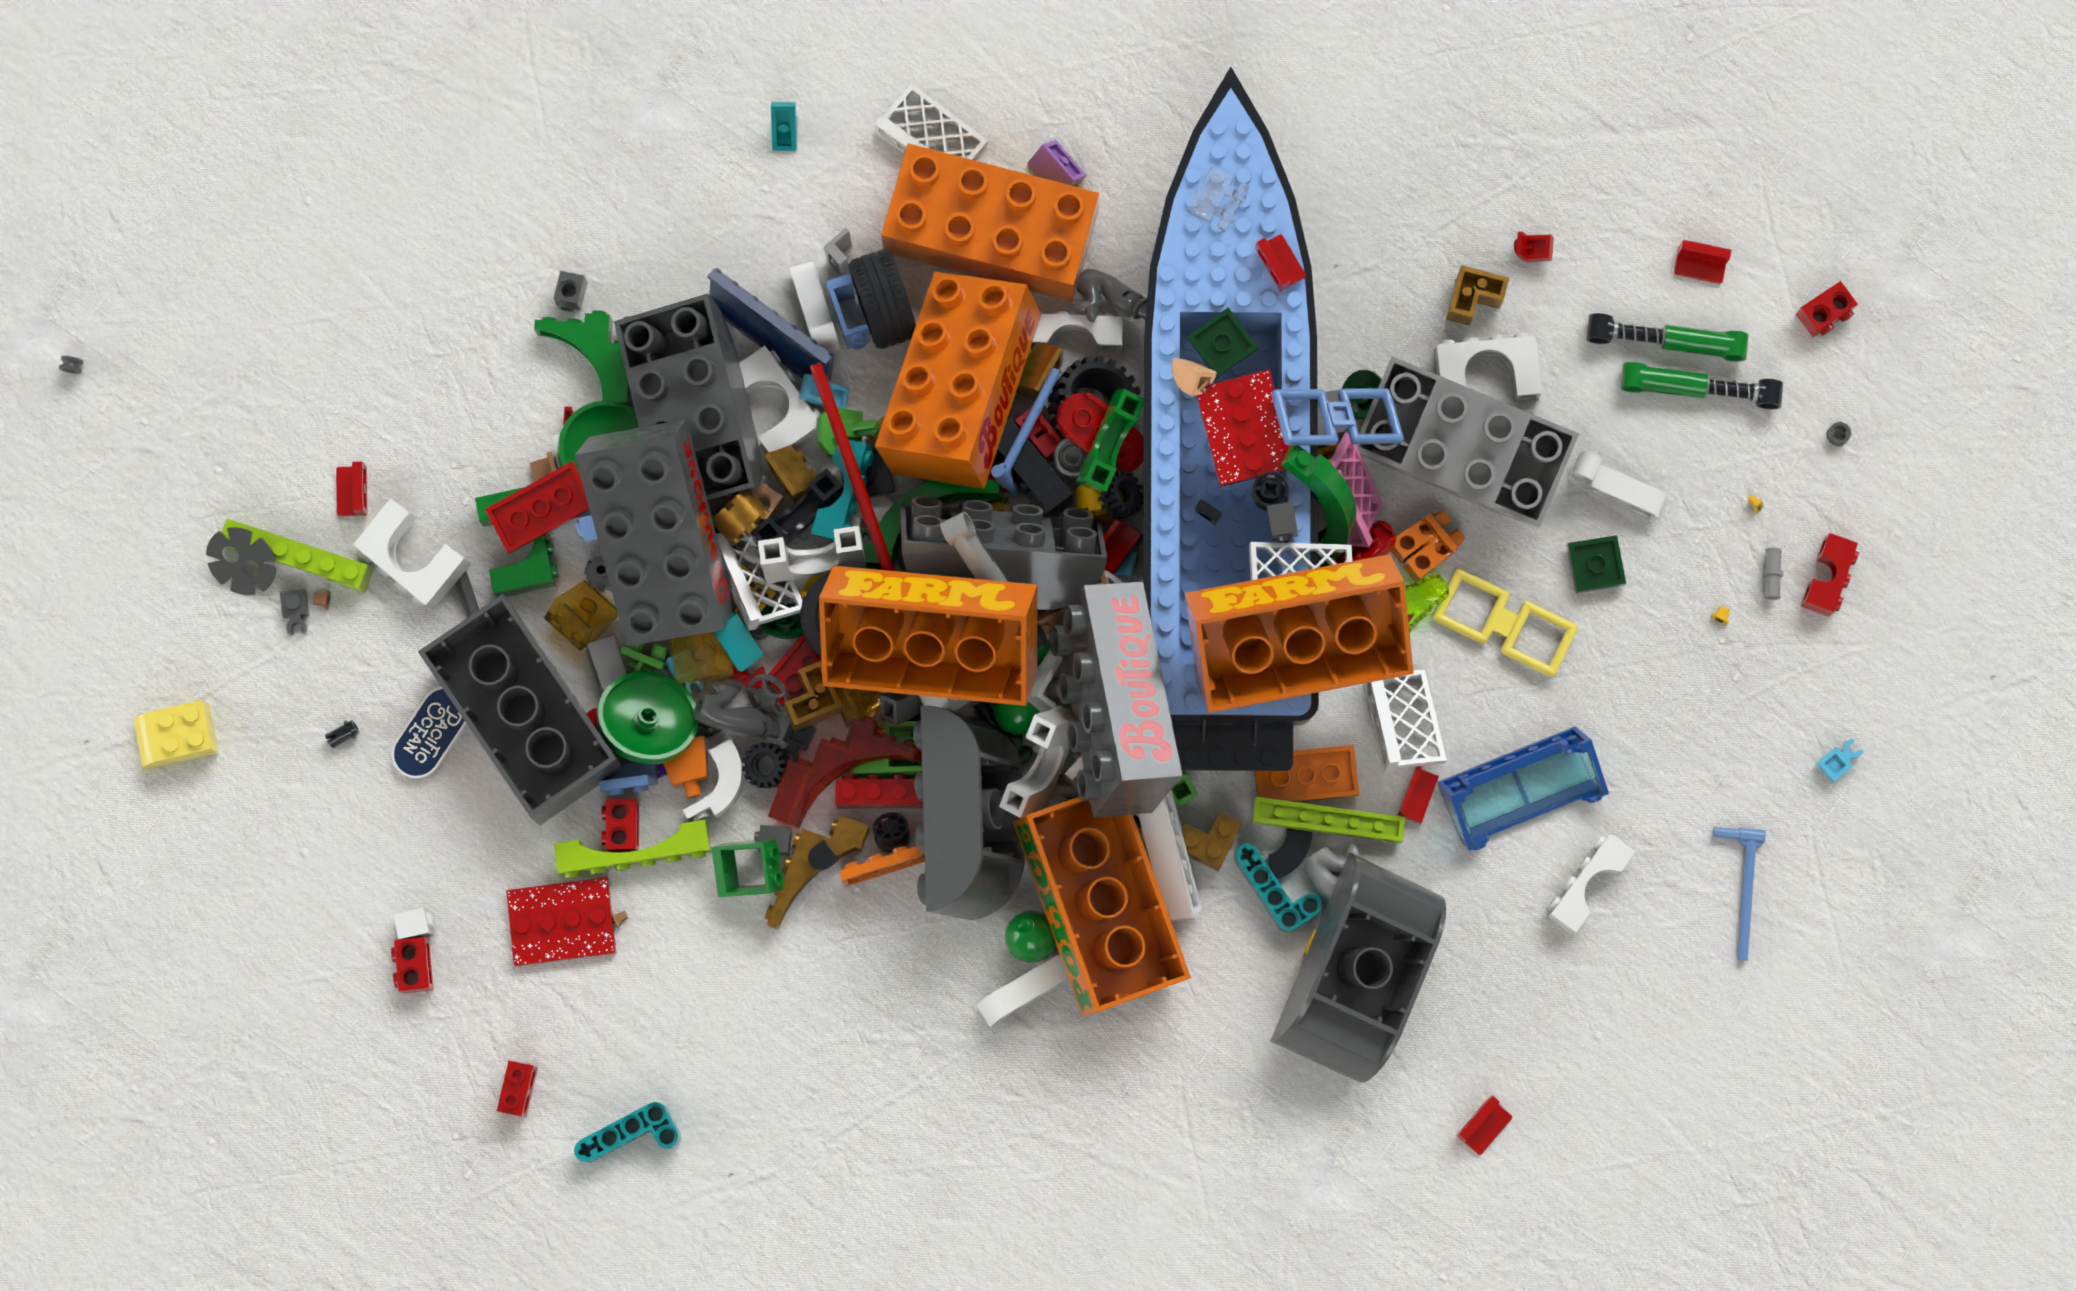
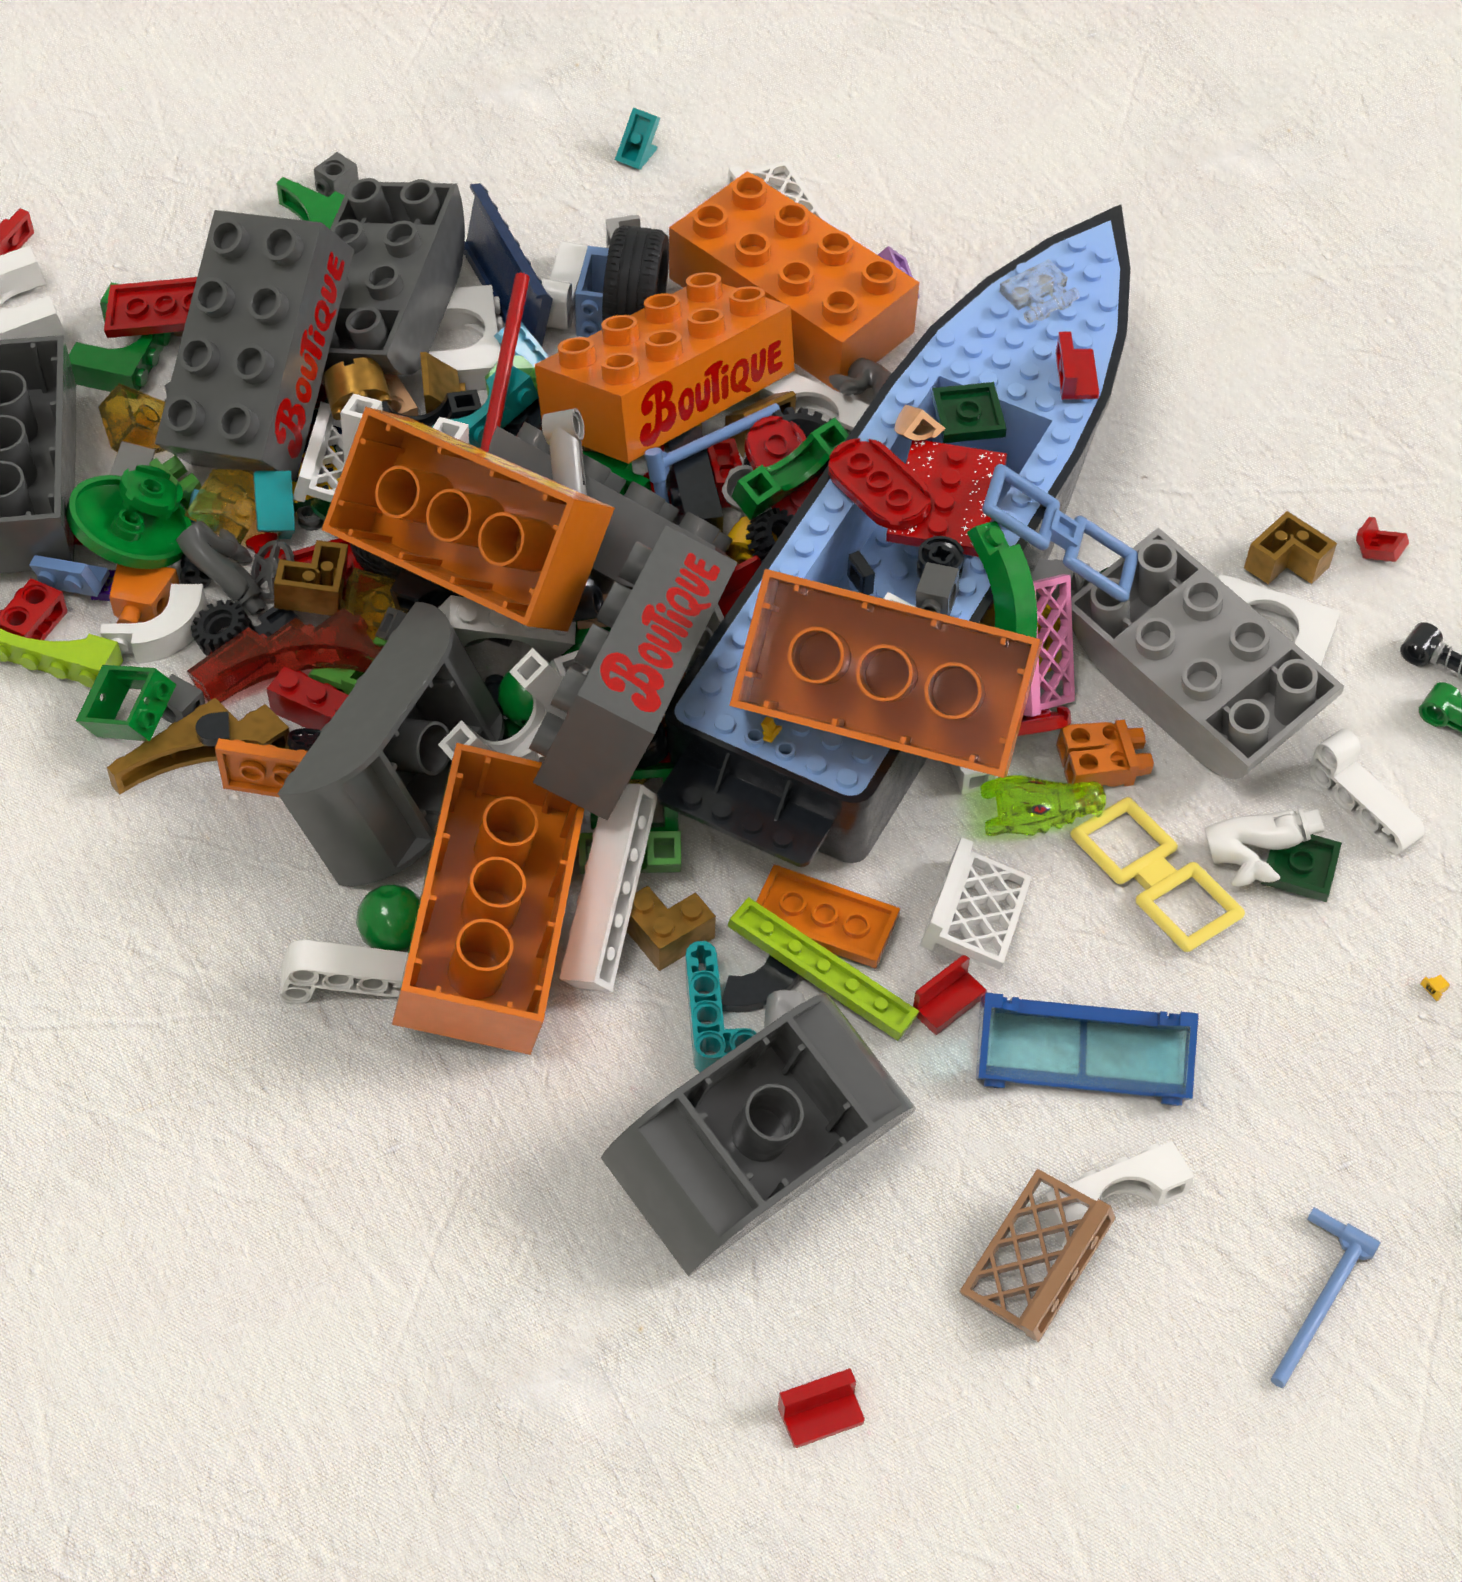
camera: 25 degrees right, 25 degrees down
(649, 672) = (159, 502): none -> green plate
(1193, 444) = (880, 483): none -> red tile
(1565, 556) = (1267, 831): none -> white piece
(1586, 962) = (1065, 1270): none -> medium nougat fence

